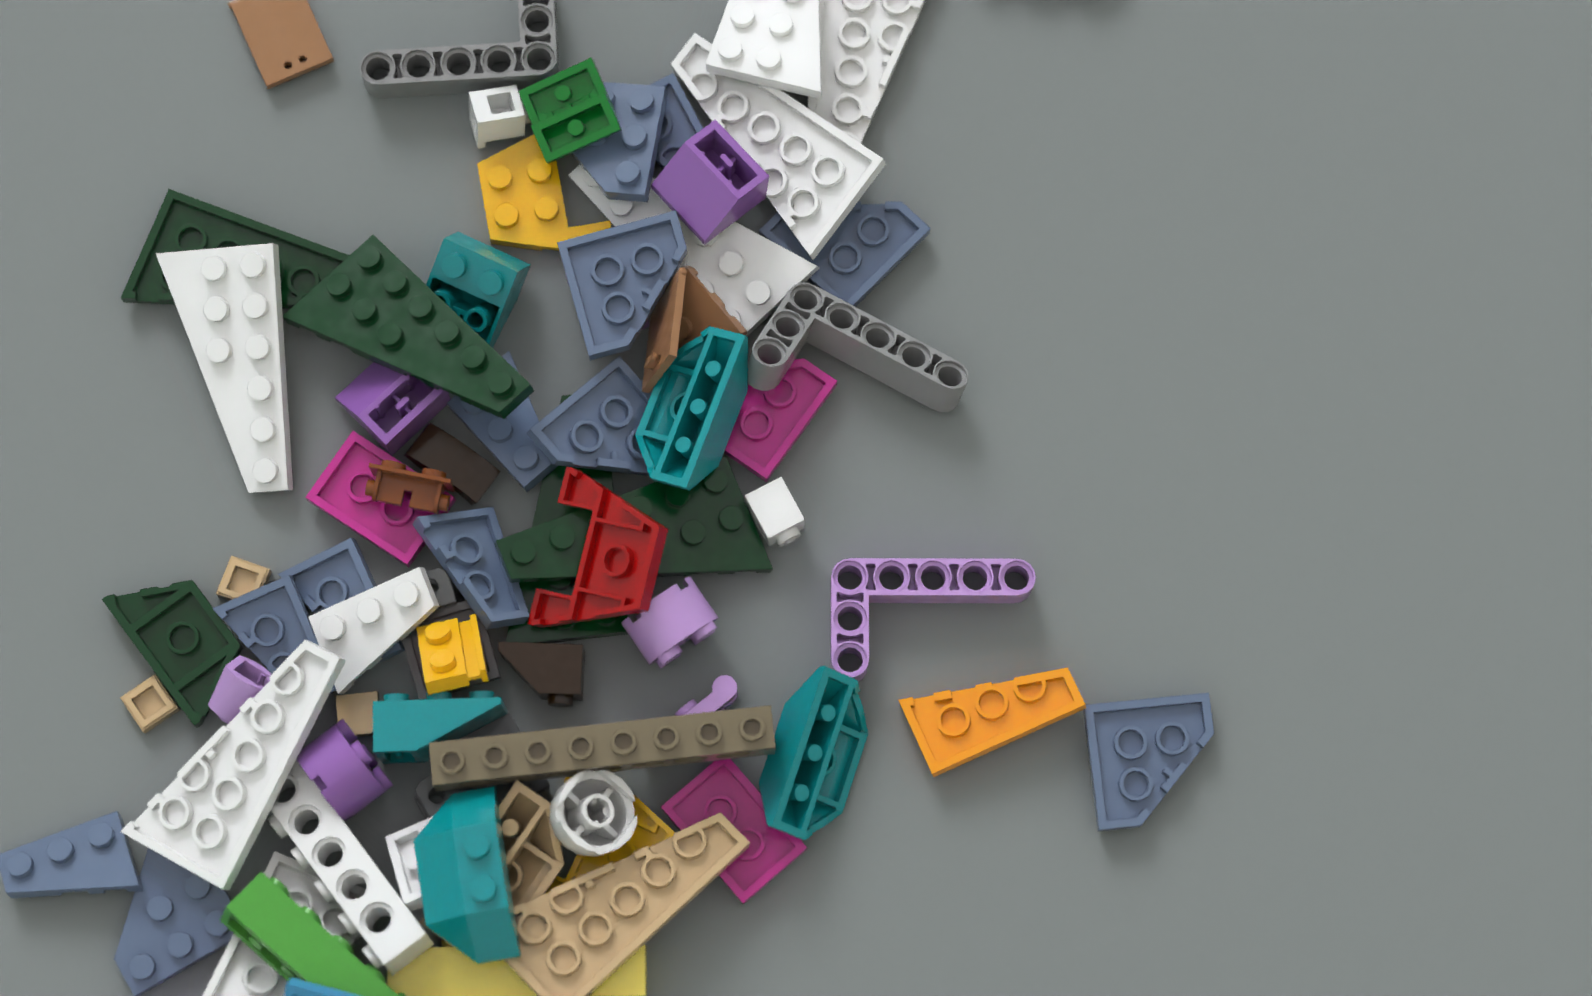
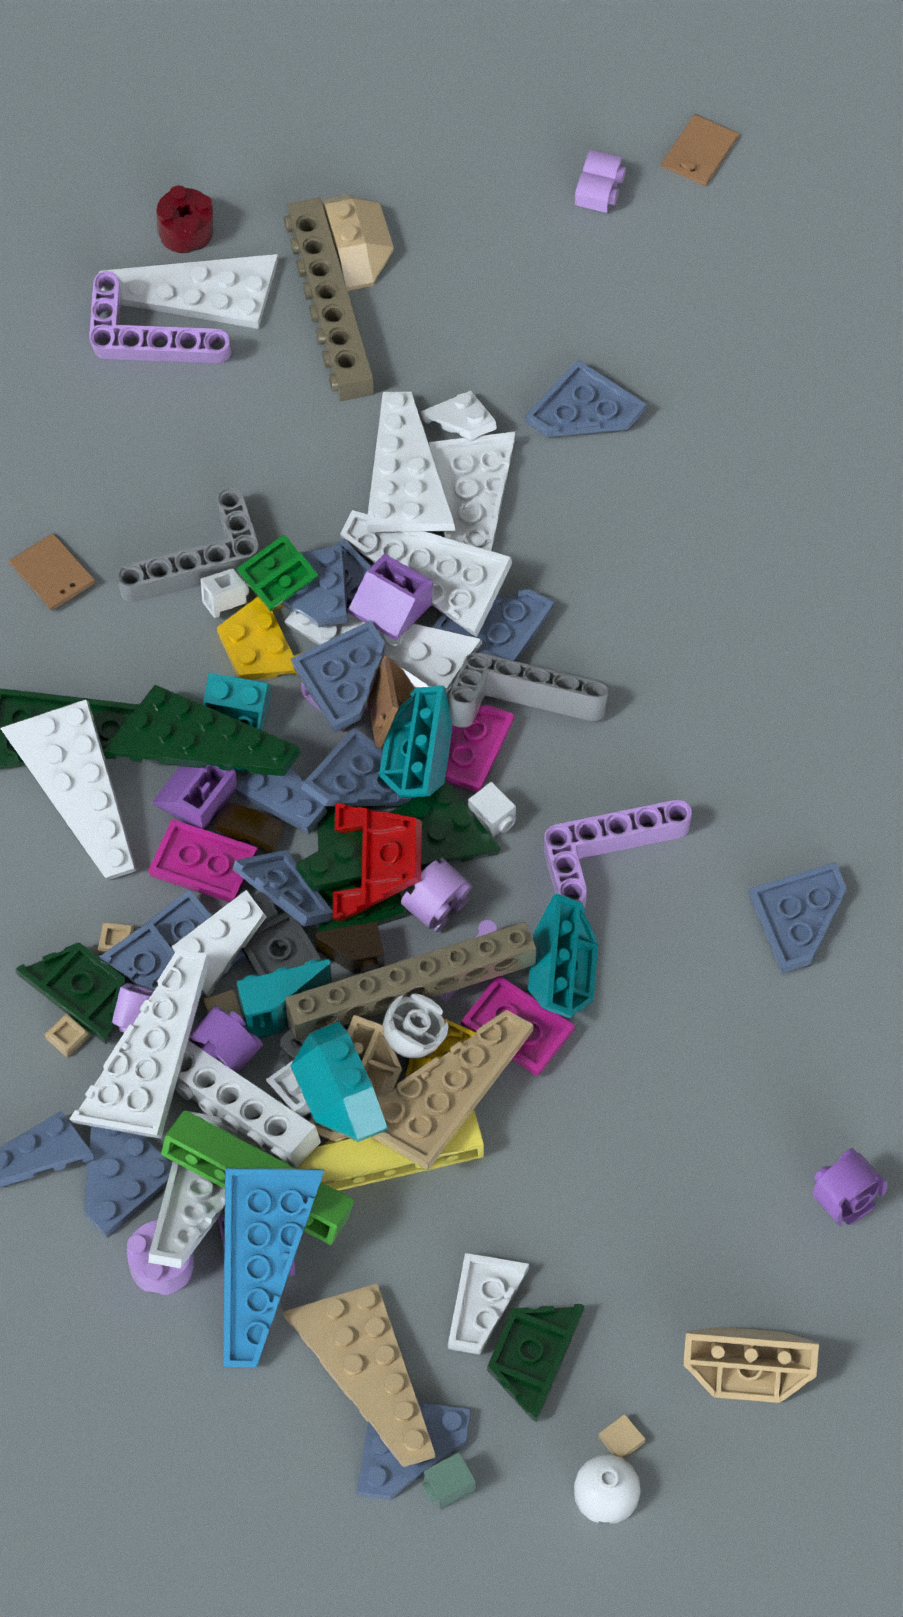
camera: 10 degrees left, 15 degrees down
(394, 480) = (238, 840): dark orange hinge -> none
(451, 654) = (284, 943): yellow plate -> none
(983, 718) = (673, 918): light orange wing -> none

